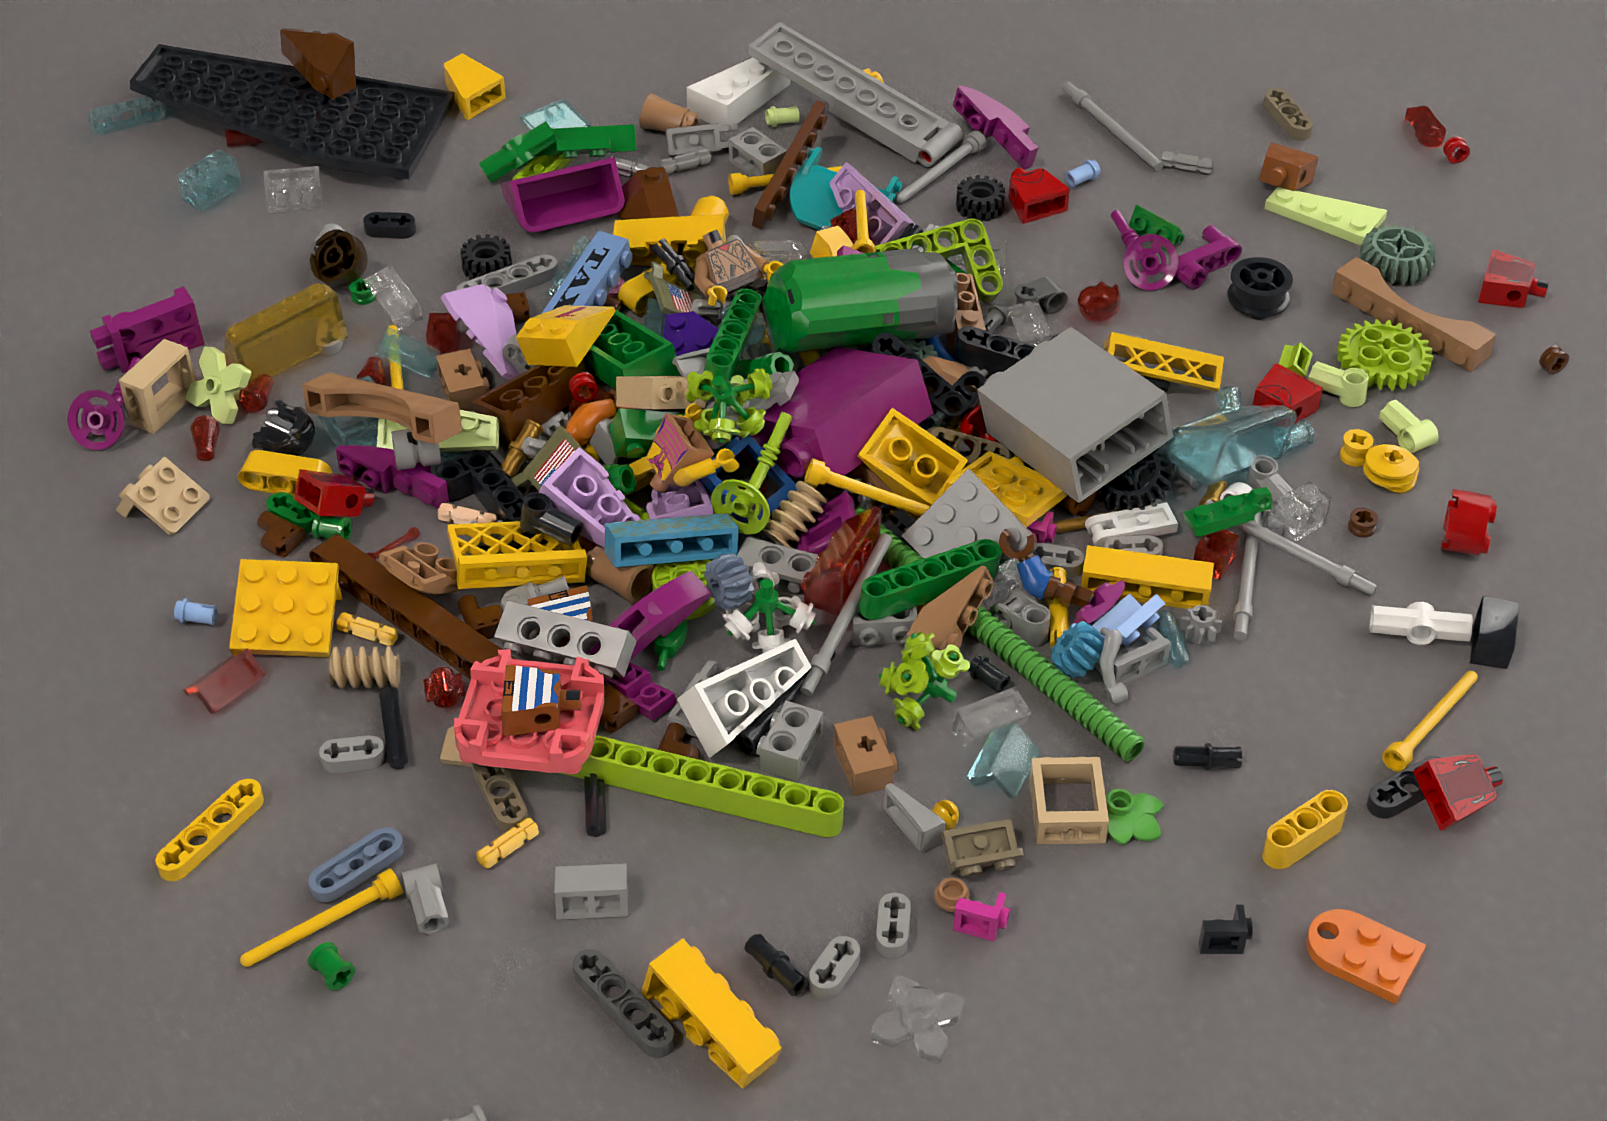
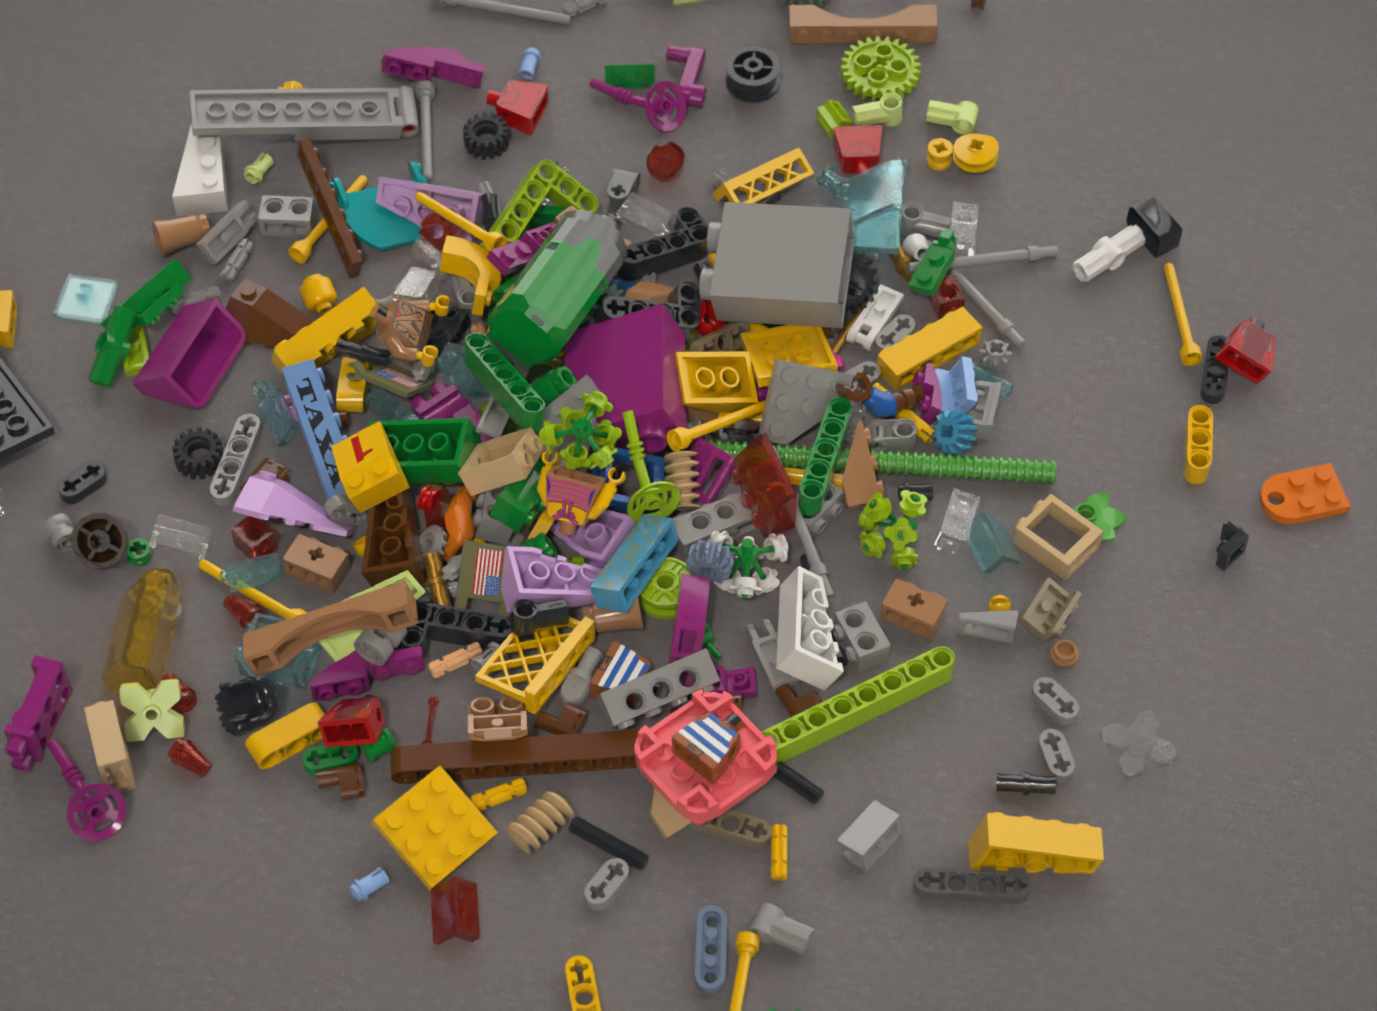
camera: 45 degrees left, 10 degrees up
(164, 496) = (223, 823): tan bracket -> none
(443, 687) = (610, 788): clear red gear -> none
(688, 332) = (448, 400): dark purple plate -> none
(981, 919) = (1099, 653): dark pink bracket -> none
(1113, 690) = (981, 419): light grey piece -> none
(1207, 756) = (1096, 441): black axle -> none
(1365, 529) = (996, 212): reddish brown bush -> none
(1467, 522) = (1067, 160): red brick -> none

